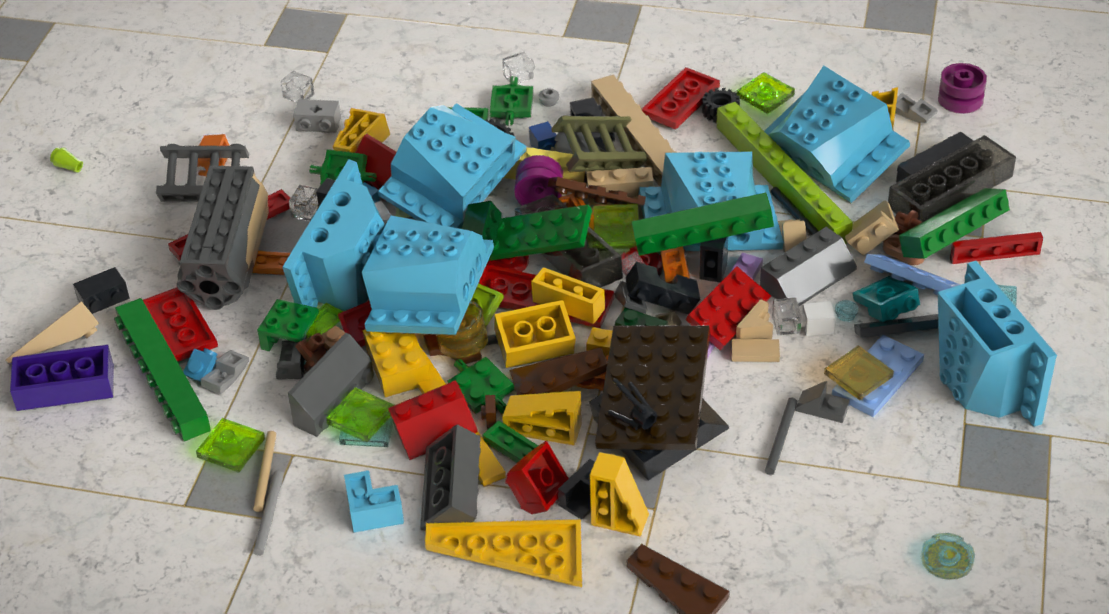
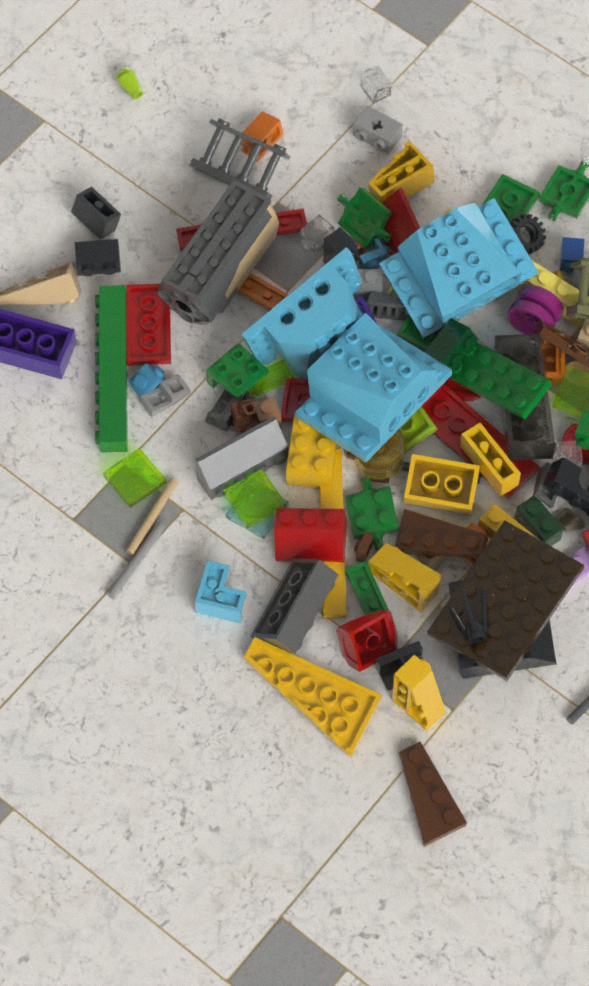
camera: 25 degrees right, 20 degrees up
(82, 257) = (95, 212): none -> black brick

